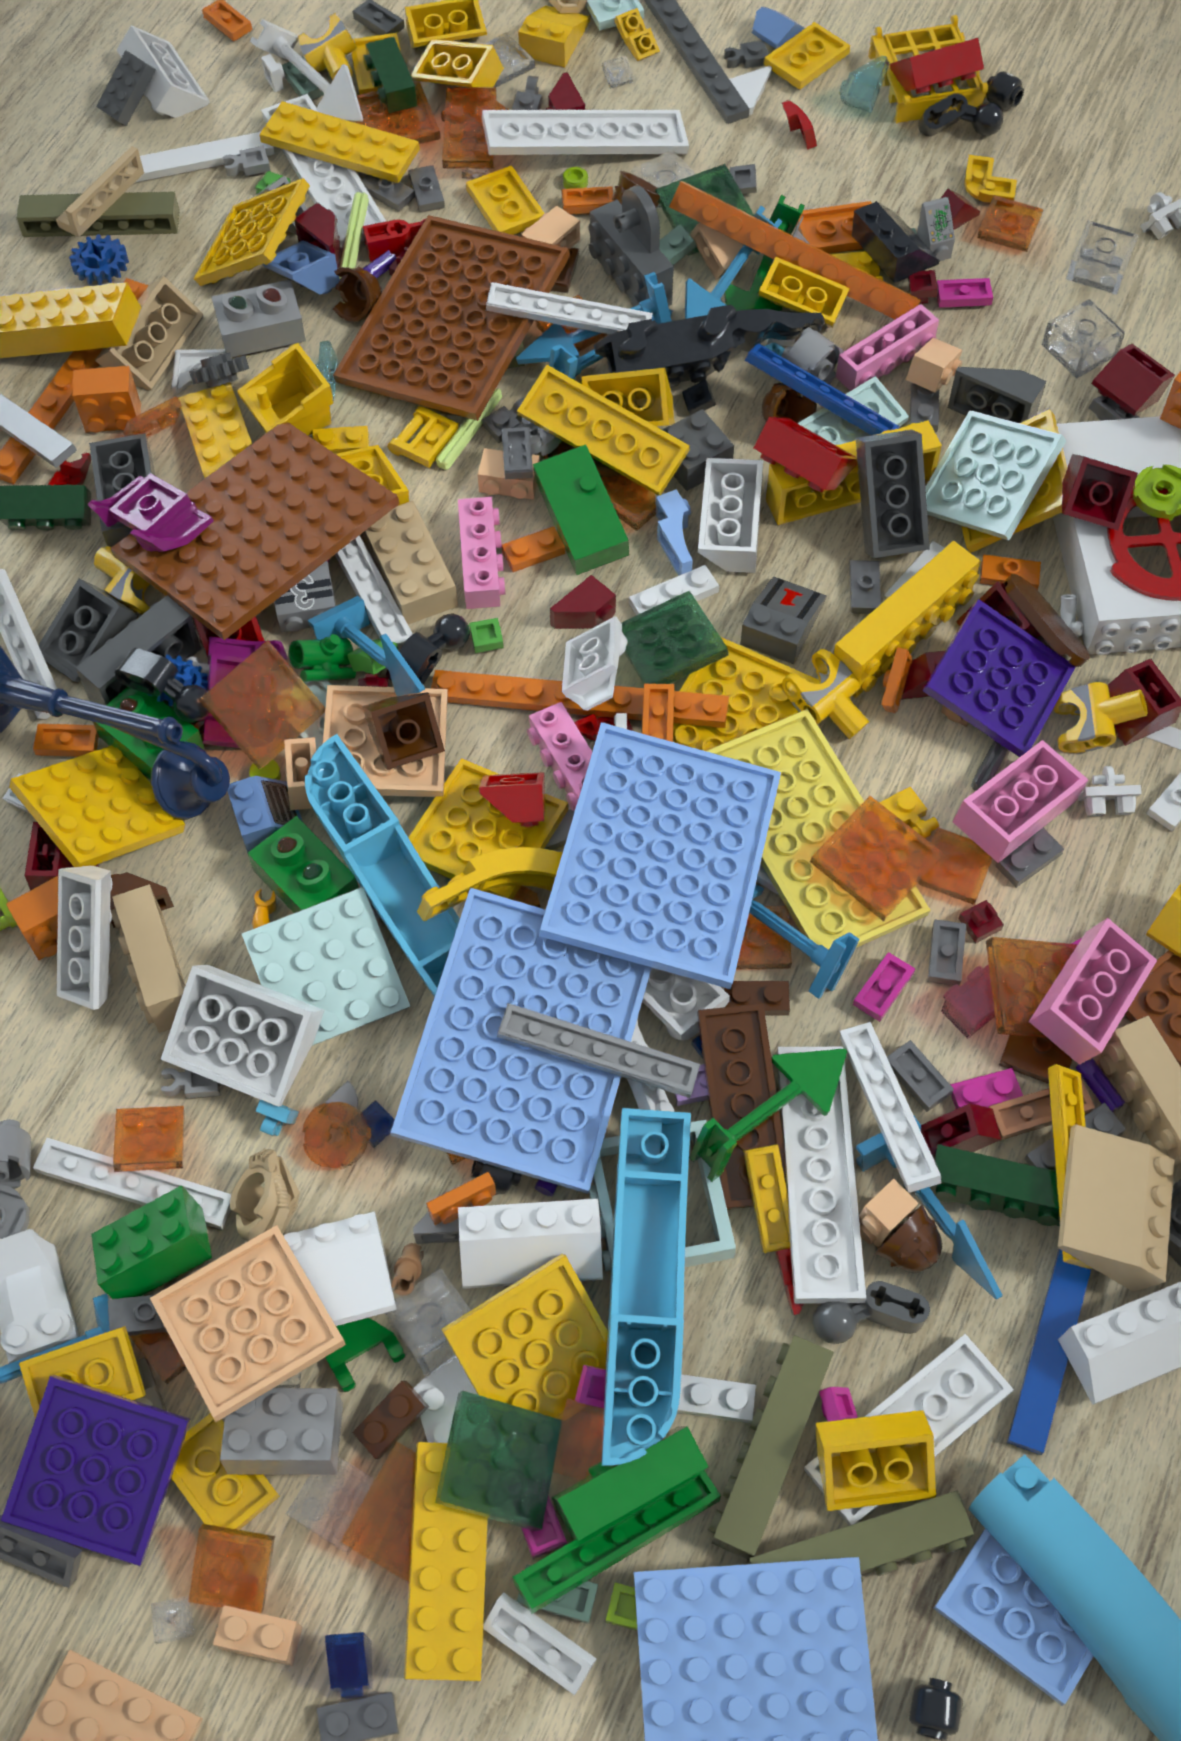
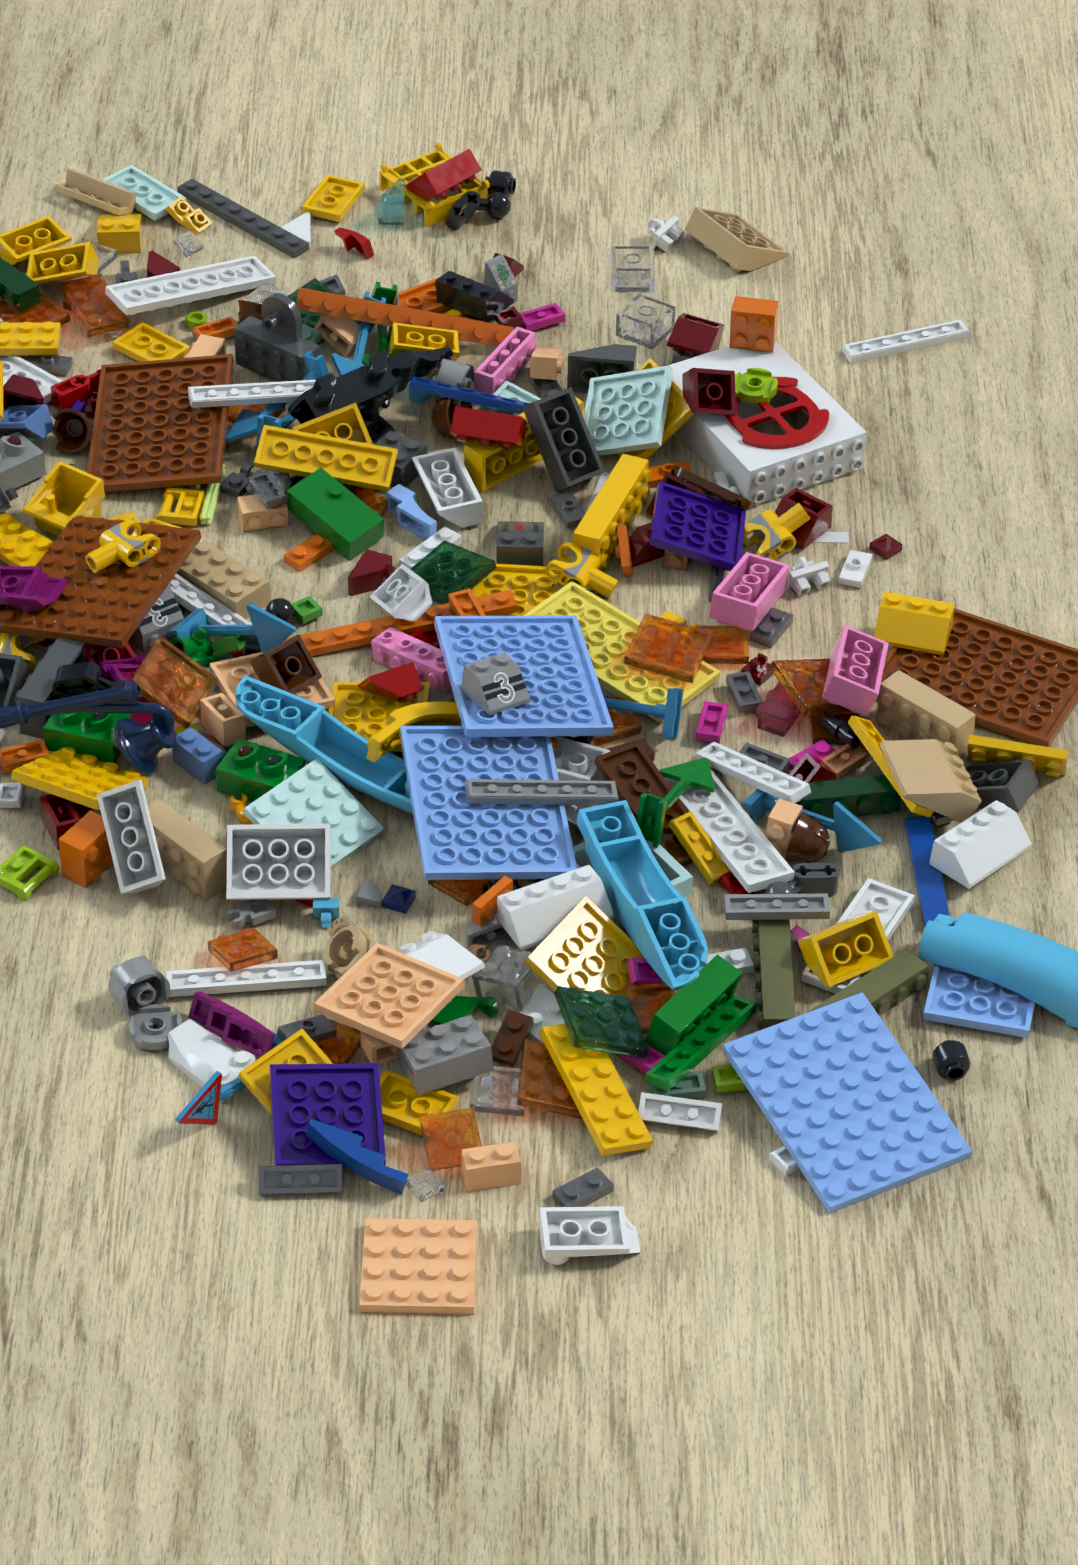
camera: 25 degrees left, 20 degrees down
(72, 1268) = (231, 1024): none -> magenta slope
(88, 1542) = (346, 1150): none -> blue slope
(151, 1245) = (288, 990): green piece -> none
(293, 495) = (119, 546): none -> yellow connector
(317, 1137) = (384, 919): clear orange plate -> none
(349, 1663) = (561, 1152): clear blue slope -> none
(354, 230) = (45, 389): yellowish green axle -> none
(426, 188) = (82, 356): flat silver plate -> none
(479, 554) = (270, 561): bright pink brick -> none
(608, 871) = (495, 683): none -> light grey slope
(749, 54) = (286, 208): dark grey plate -> none
(774, 27) = (297, 185): medium blue slope -> none
(814, 1354) = (776, 906): none -> light grey plate
(982, 184) = (514, 247): yellow plate -> none
(1010, 223) = (551, 267): clear orange plate -> none
(1035, 1066) = (839, 729): none -> black pin
(1100, 1084) = (887, 731): dark purple piece -> none

